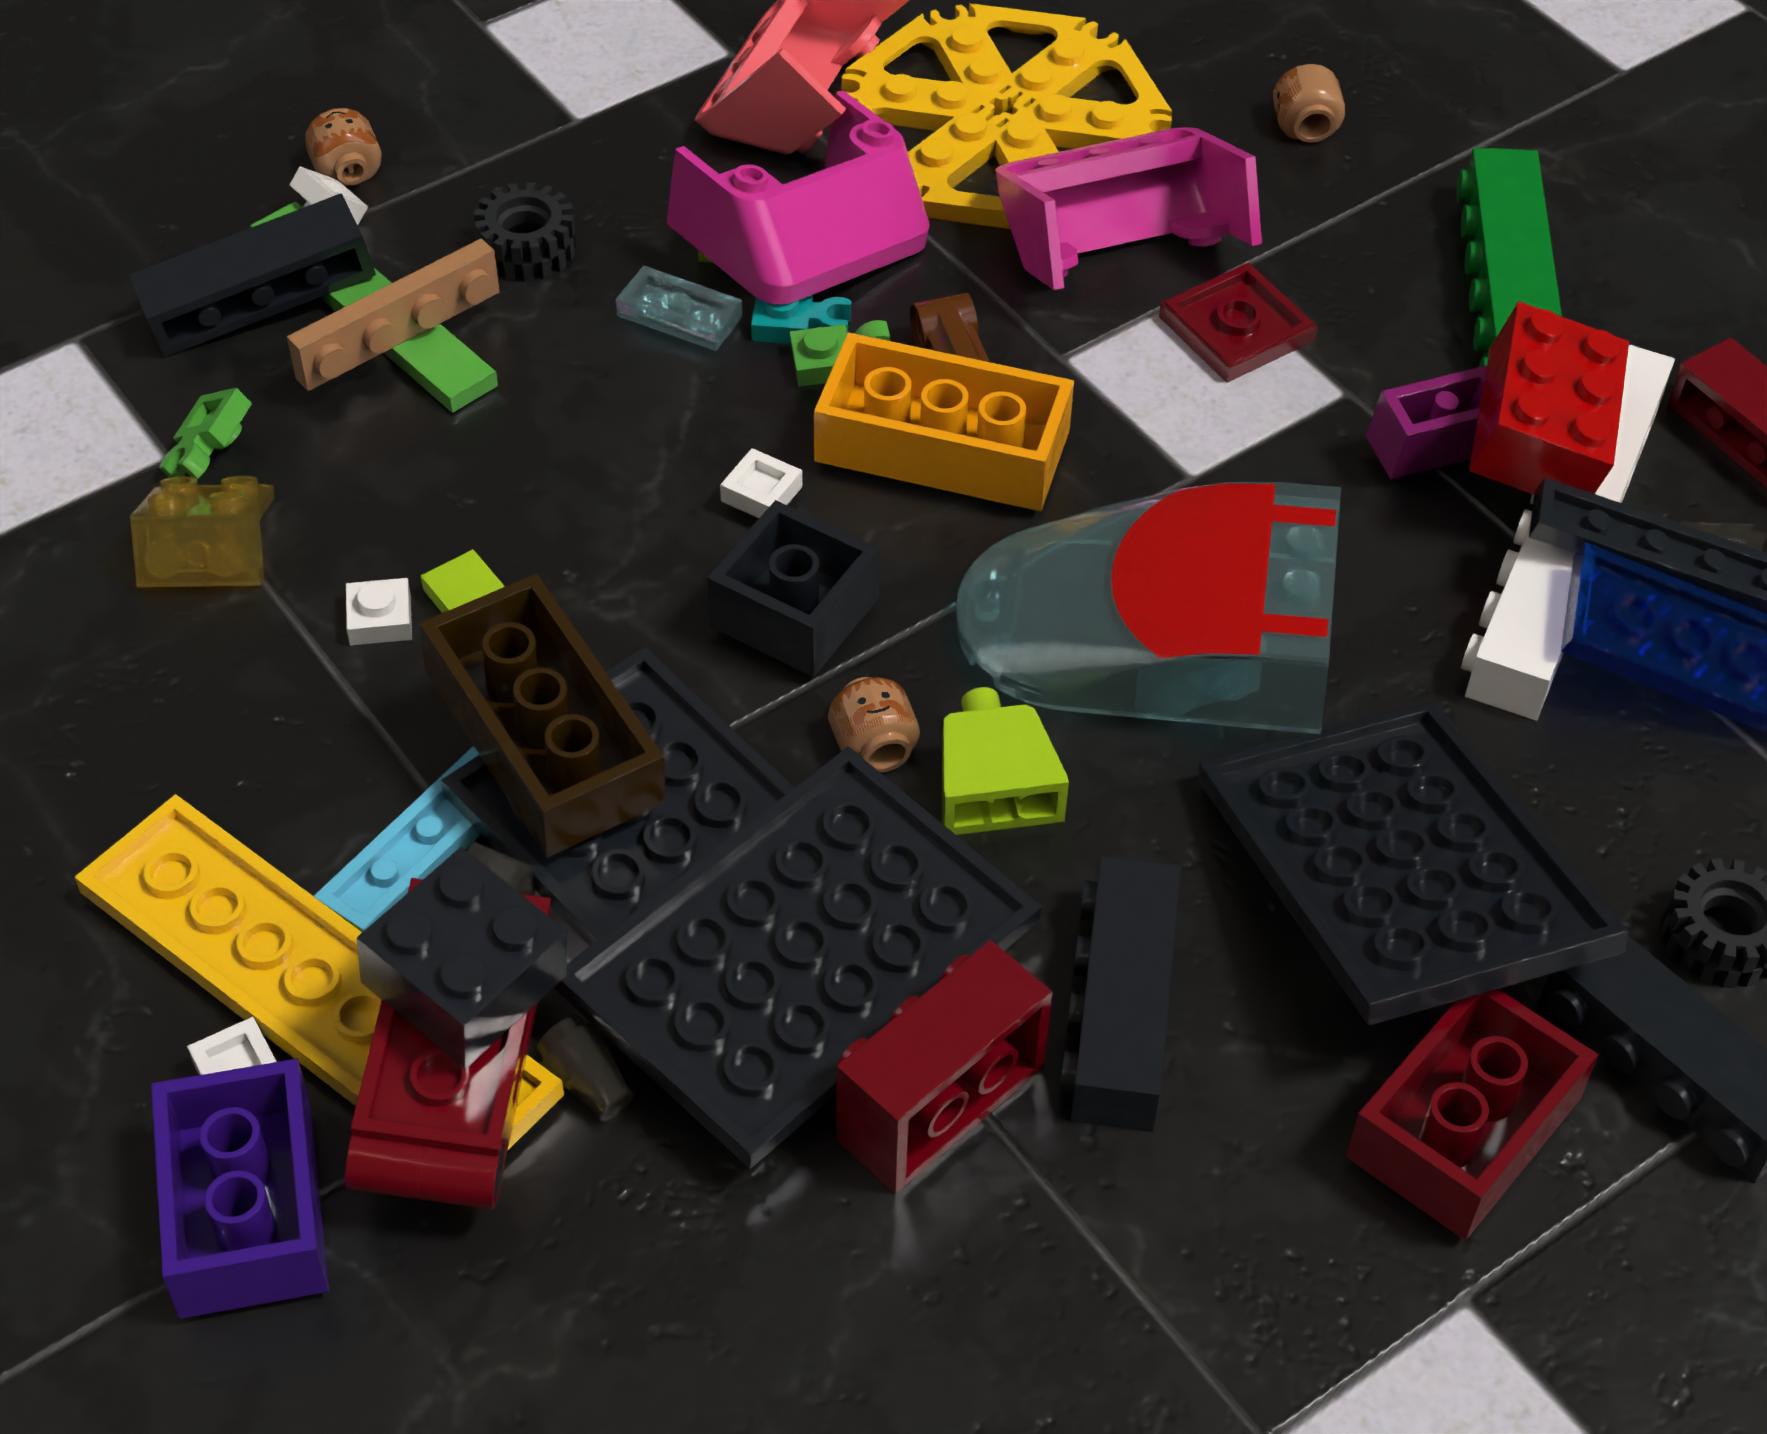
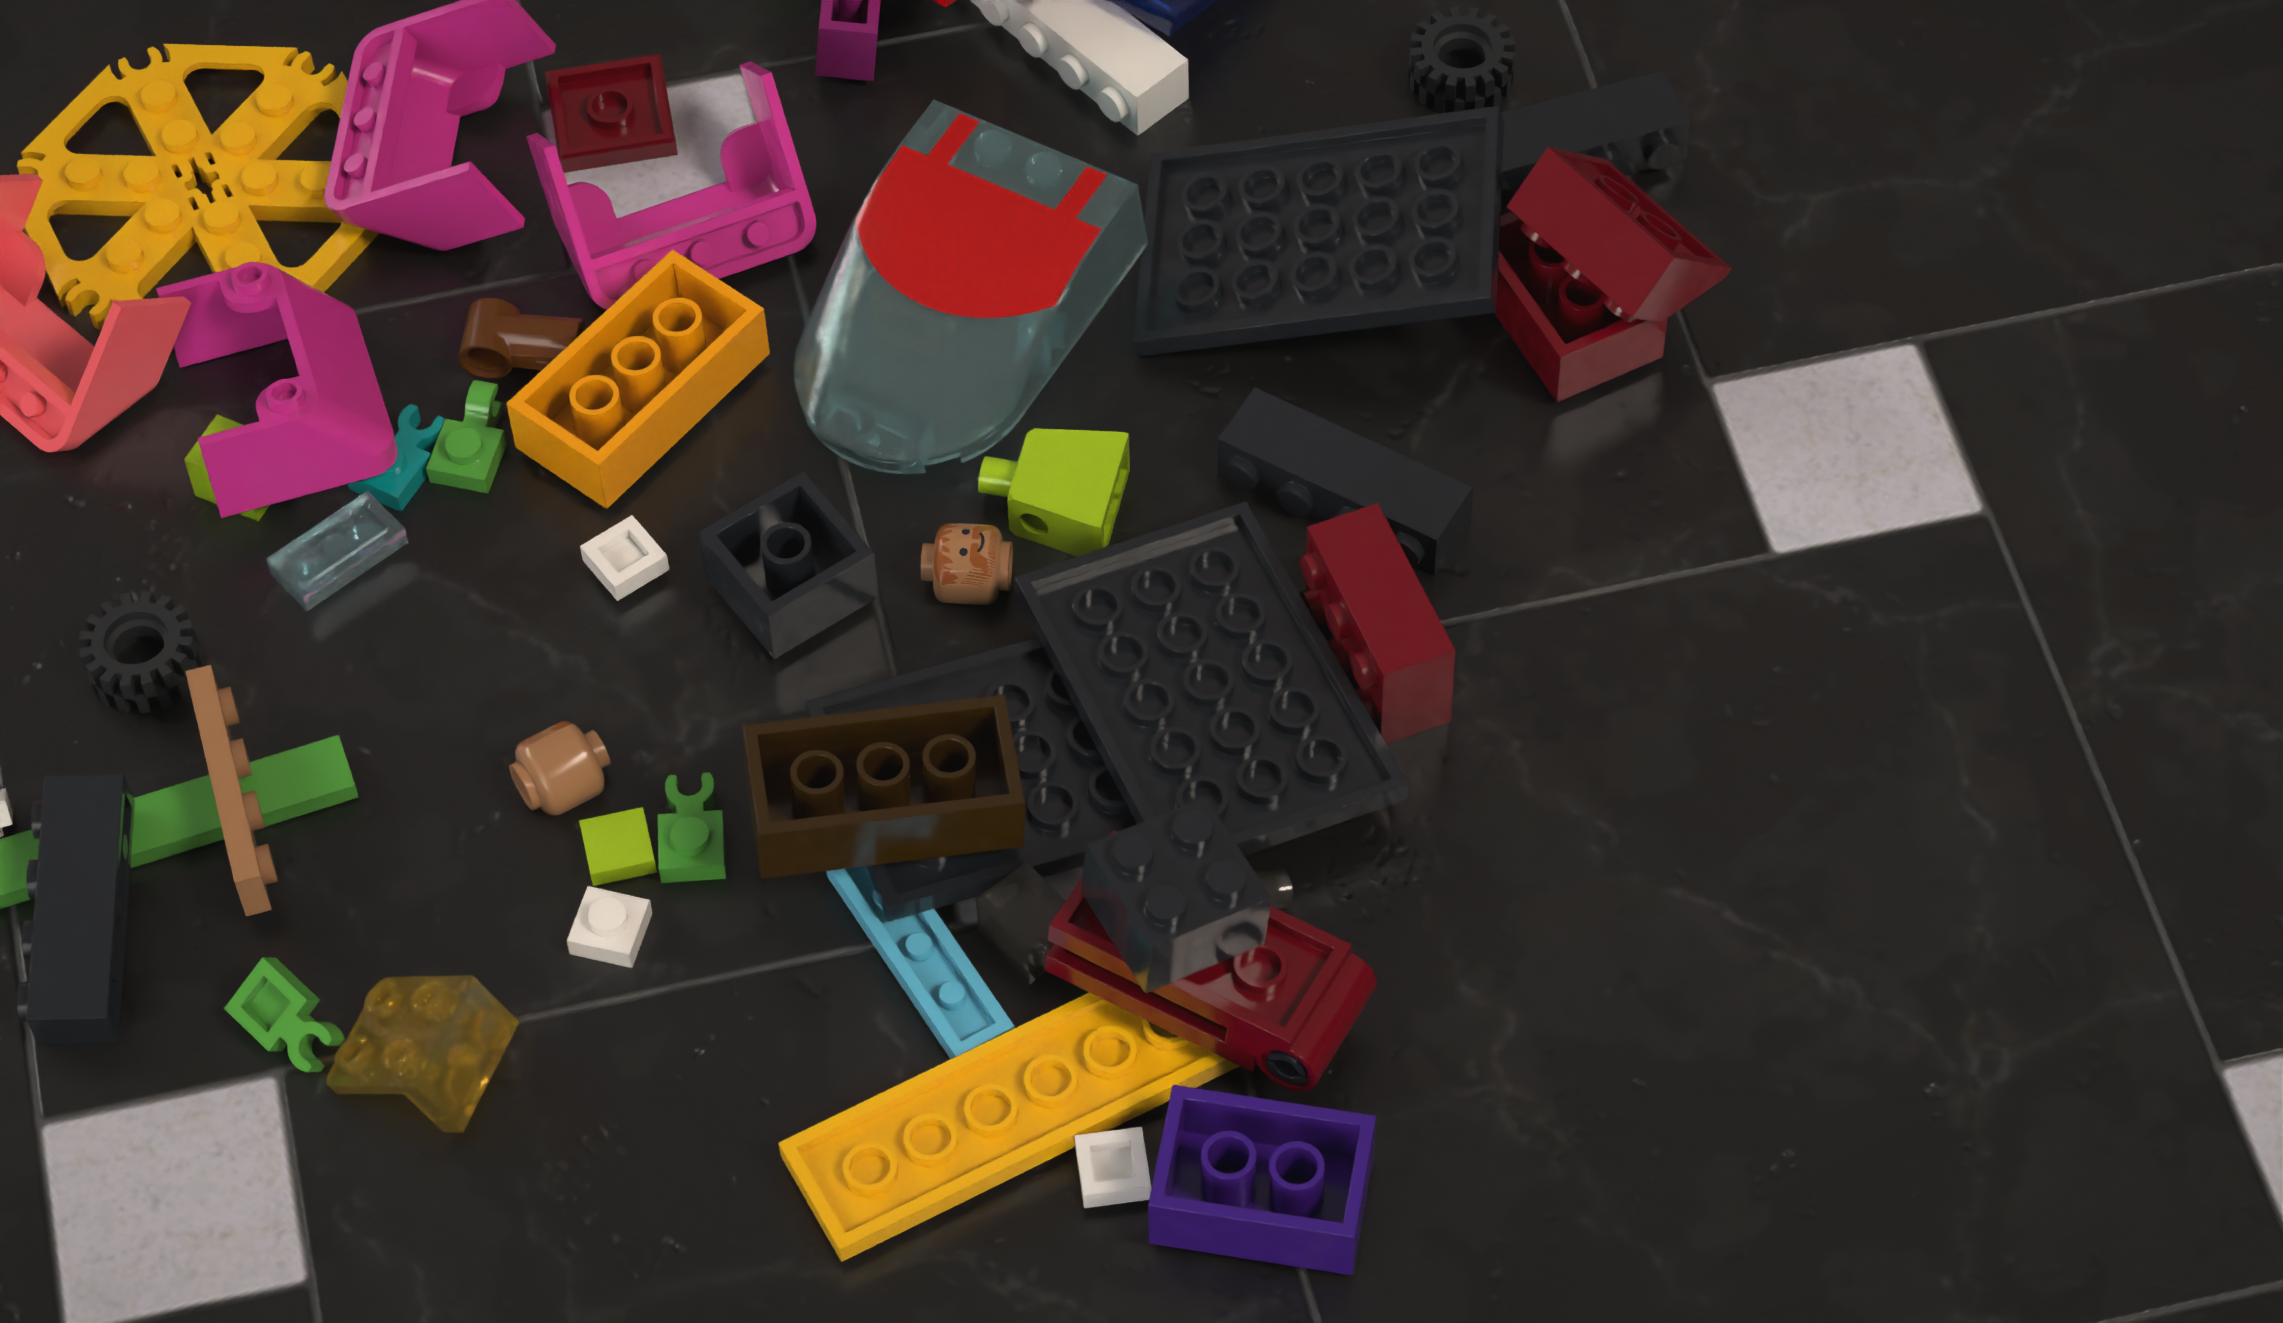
camera: 65 degrees left, 5 degrees up
(519, 517) = (559, 768): none -> medium nougat head
(1129, 413) = (722, 228): none -> dark pink windscreen
(1536, 1104) = (1614, 236): none -> dark red slope

